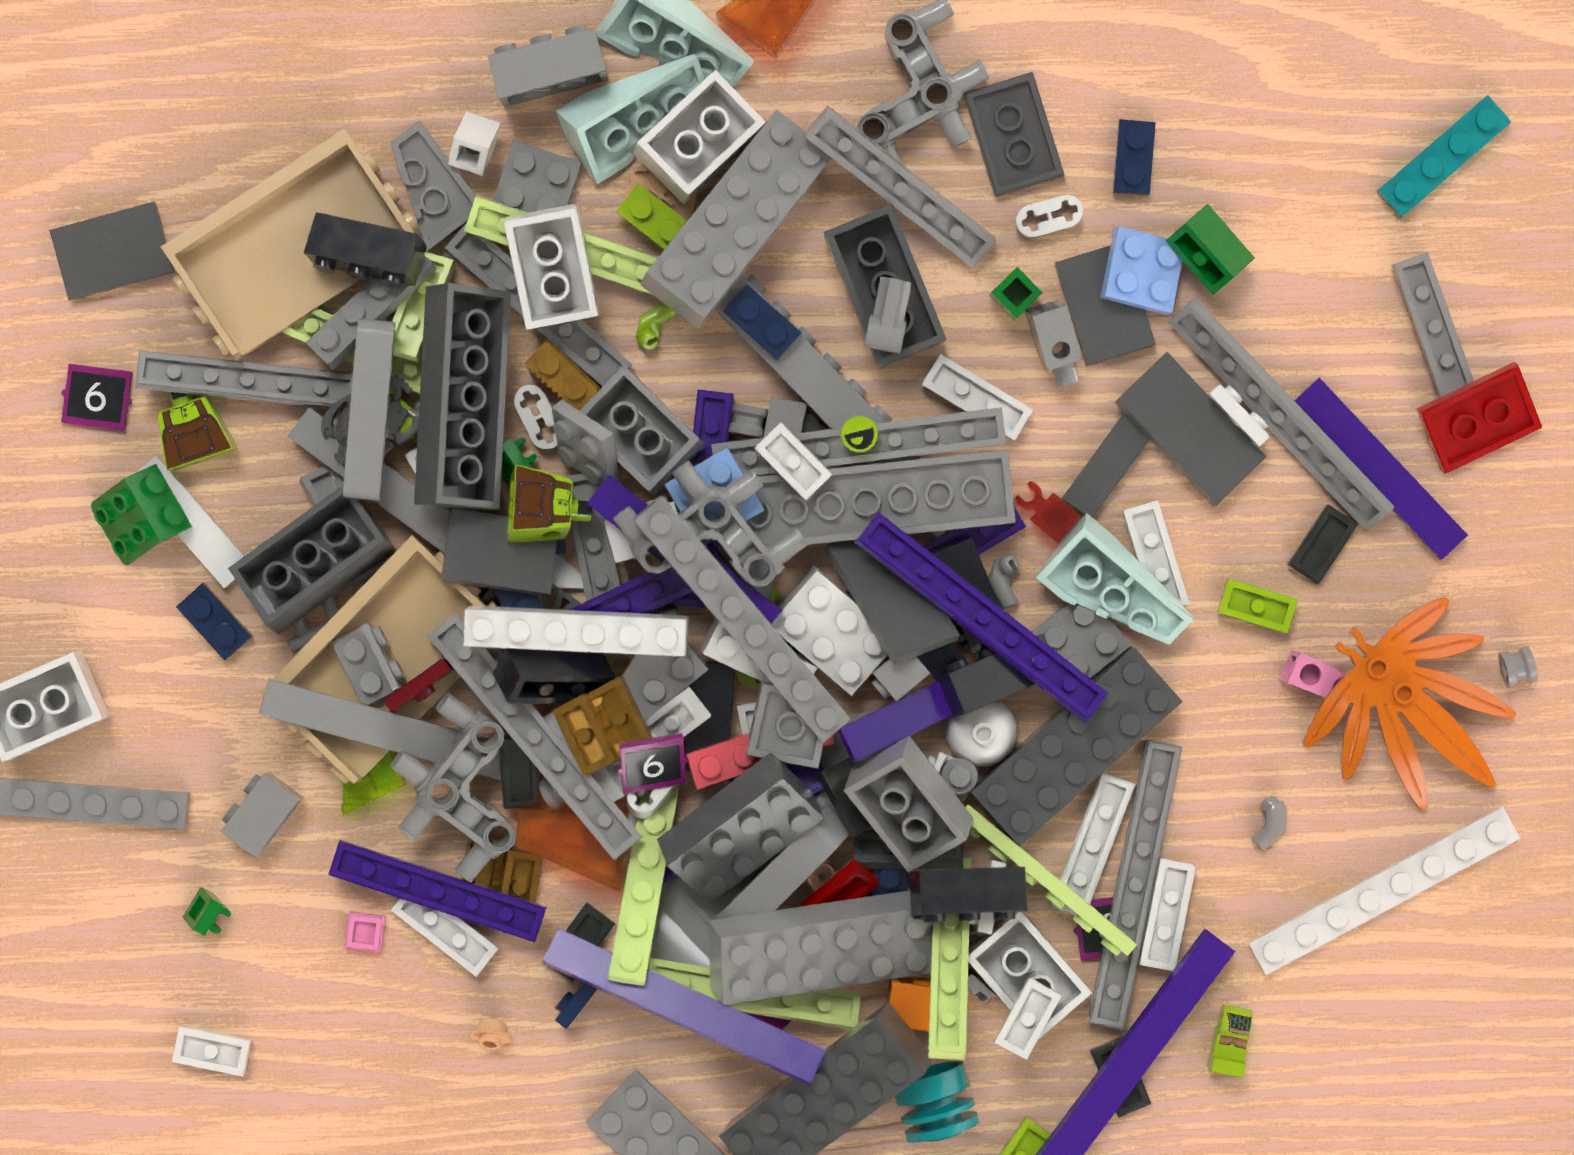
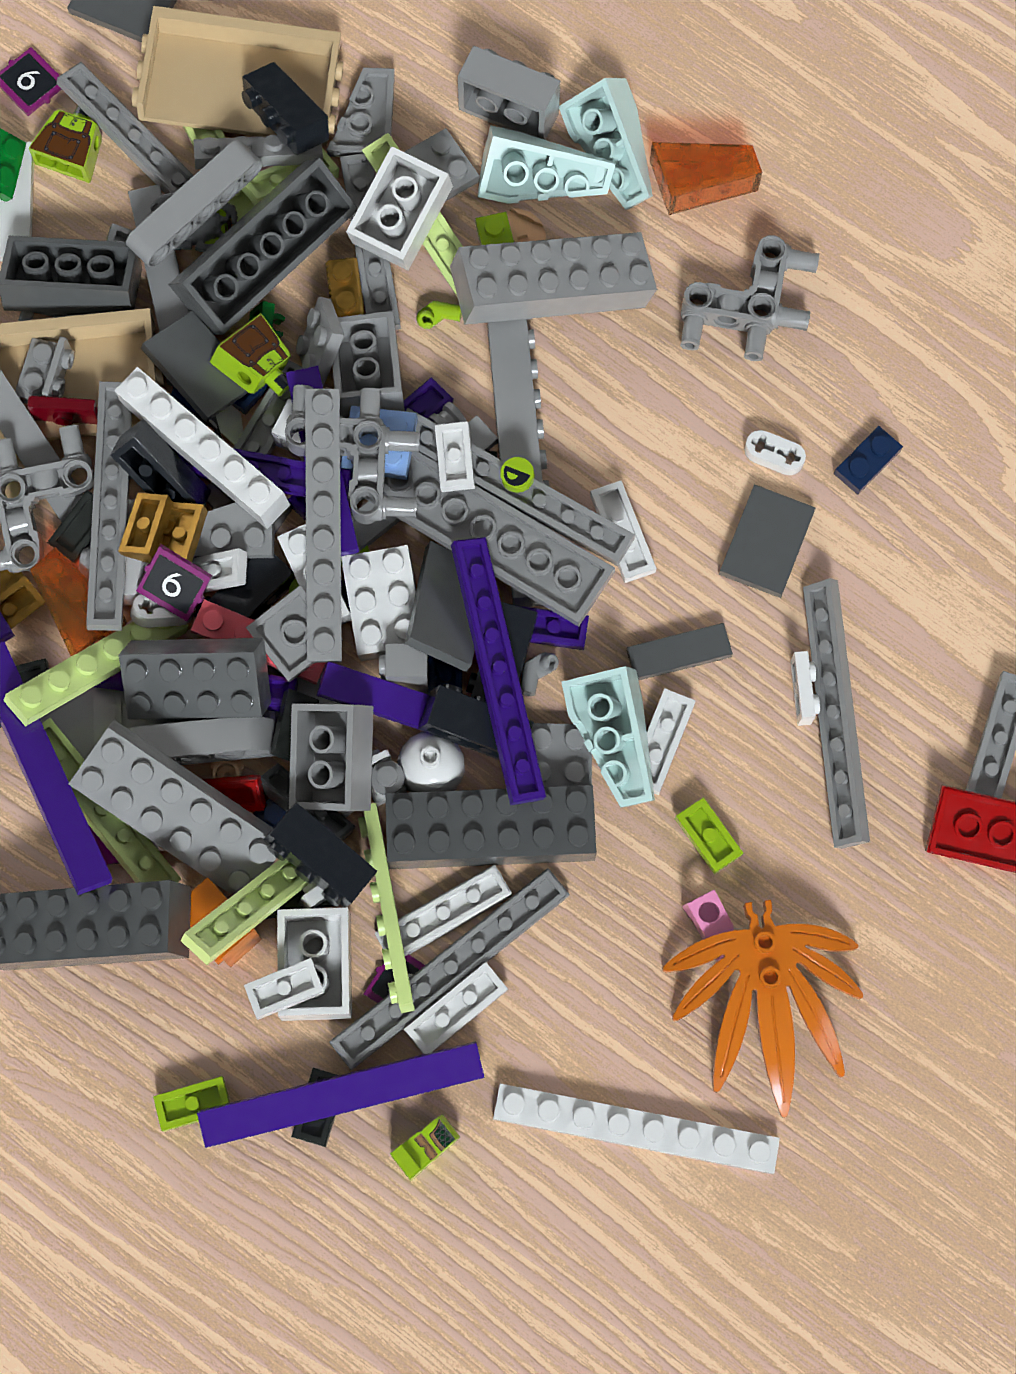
camera: 35 degrees right, 15 degrees down
(474, 143) = (417, 106): white brick -> none
(528, 418) = (299, 309): white beam -> none
(699, 137) = (571, 205): white brick -> none
(762, 322) = (513, 358): dark blue plate -> none
(875, 249) = (619, 404): dark grey brick -> none
(887, 323) = (599, 418): light grey piece -> none
(899, 186) = (685, 344): light grey plate -> none
(937, 1110) = (164, 1002): teal wheel -> none
(979, 988) = (269, 944): light grey tile -> none
(1013, 134) = (794, 382): dark grey tile -> none
(1015, 293) = (708, 479): green brick -> none
(1050, 325) = (715, 520): light grey torso -> none
(1052, 515) = (607, 650): clear red plate -> none
(1141, 271) = (813, 536): light blue plate -> none
(1190, 429) = (760, 672): dark grey tile -> none
(1210, 249) = (874, 556): green brick -> none
(1275, 822) = (593, 1008): light grey arm -> none
(1322, 544) = (793, 831): pearl dark grey tile -> none
(1389, 476) = (885, 846): dark purple tile -> none
(1517, 666) = (873, 1038): light grey wheel -> none

